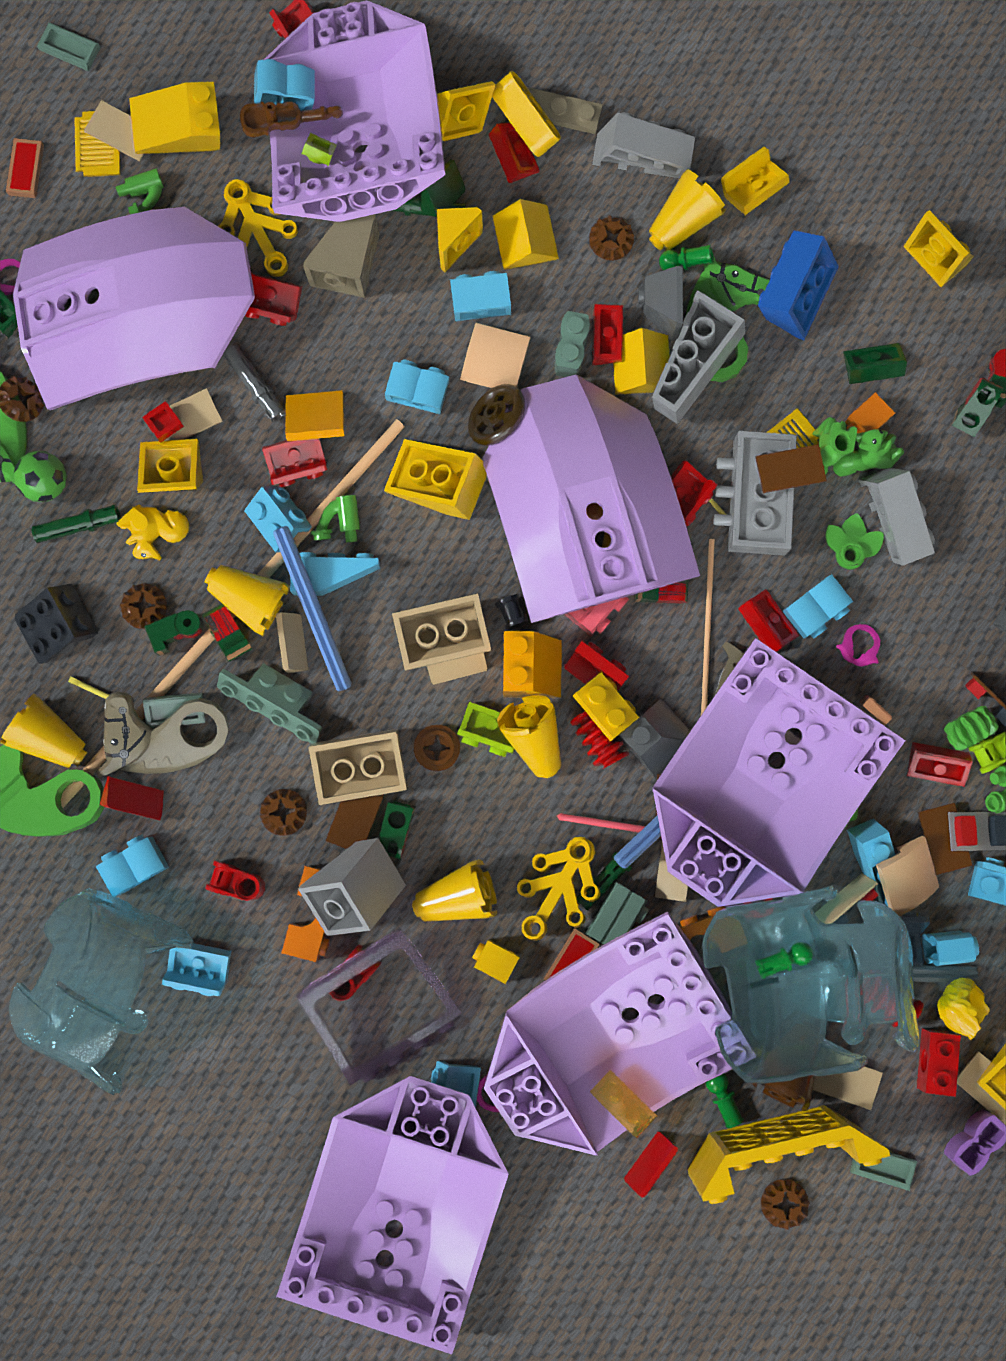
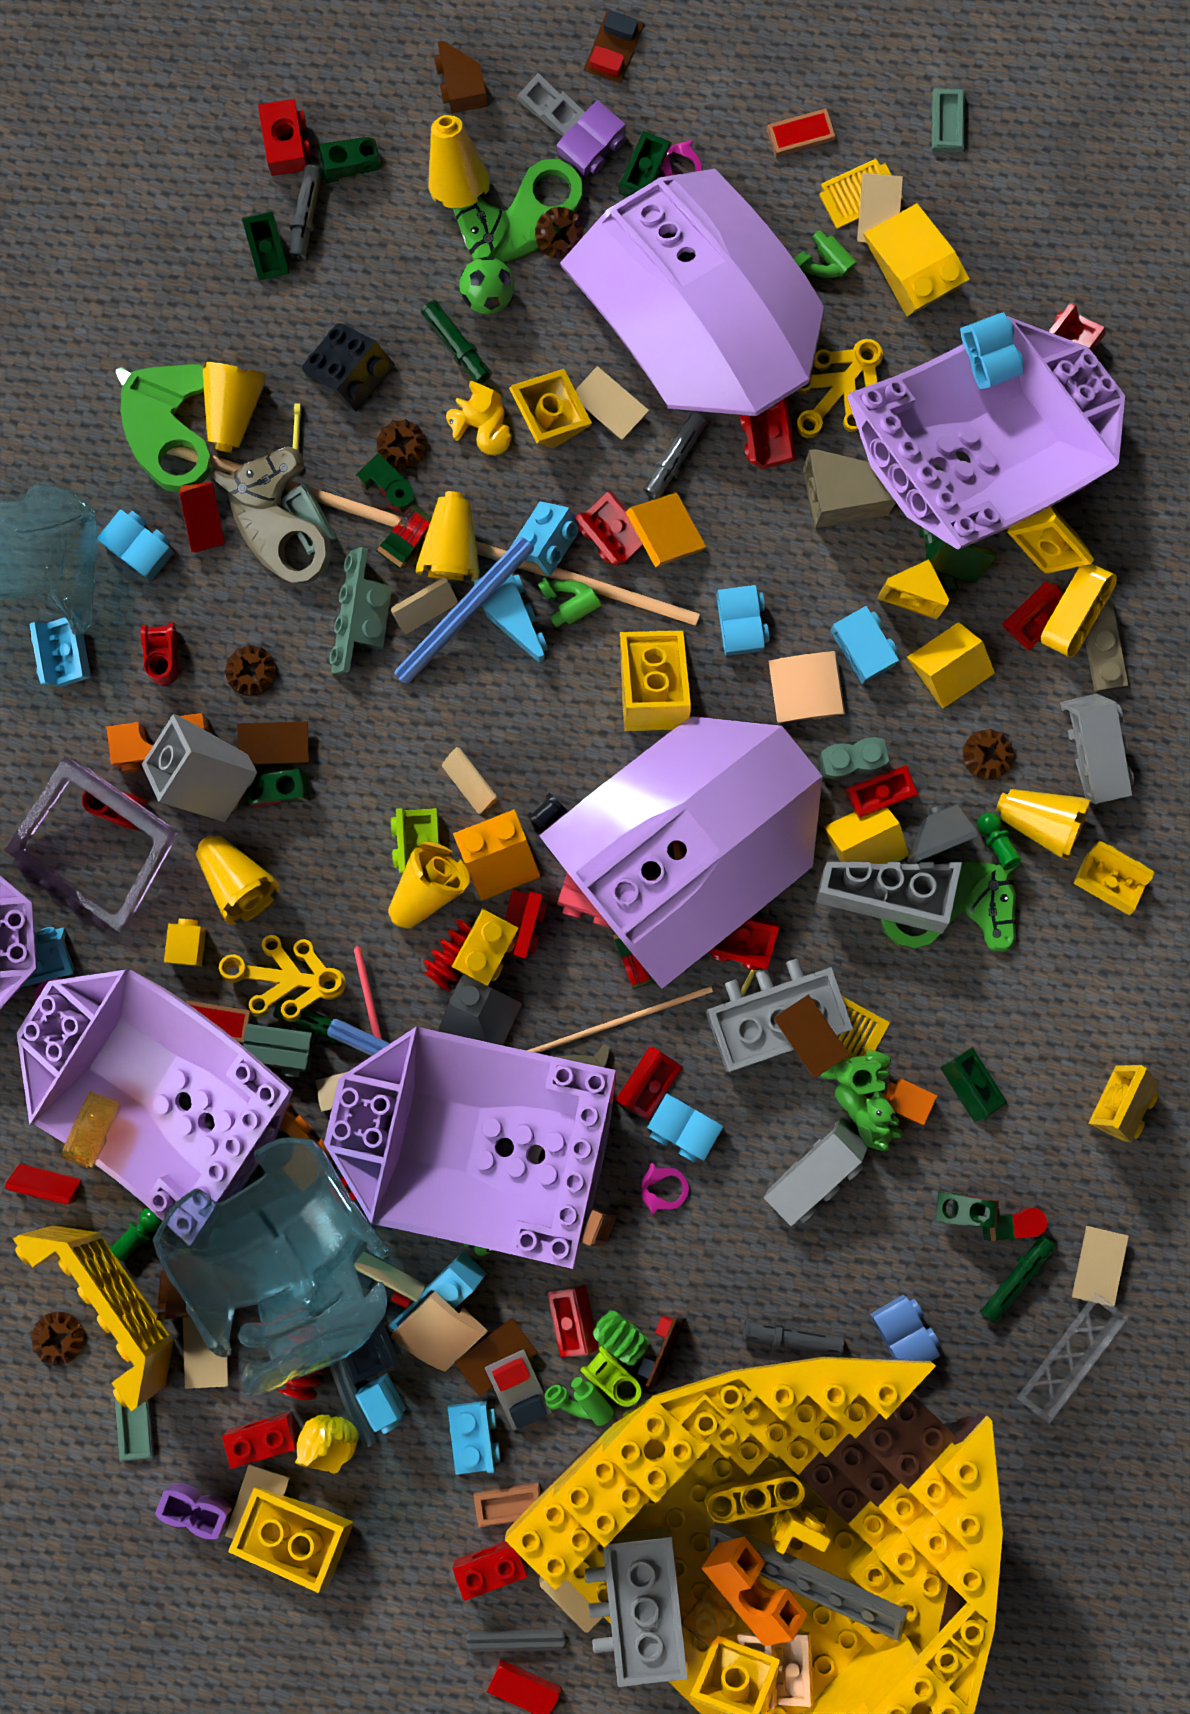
camera: 65 degrees right, 0 degrees up
(163, 422) = (593, 381): red plate -> none
(264, 118) = (947, 343): reddish brown piece -> none
(318, 149) = (939, 414): lime plate -> none
(358, 766) = (324, 724): tan slope -> none
(426, 738) = (363, 790): reddish brown gear -> none
(441, 632) = (493, 750): tan slope -> none
(496, 414) = (744, 710): dark brown plate -> none
(798, 283) = (1021, 969): blue slope -> none
(800, 954) = (310, 1247): green pin -> none
(853, 538) = (775, 1137): bright green plate -> none

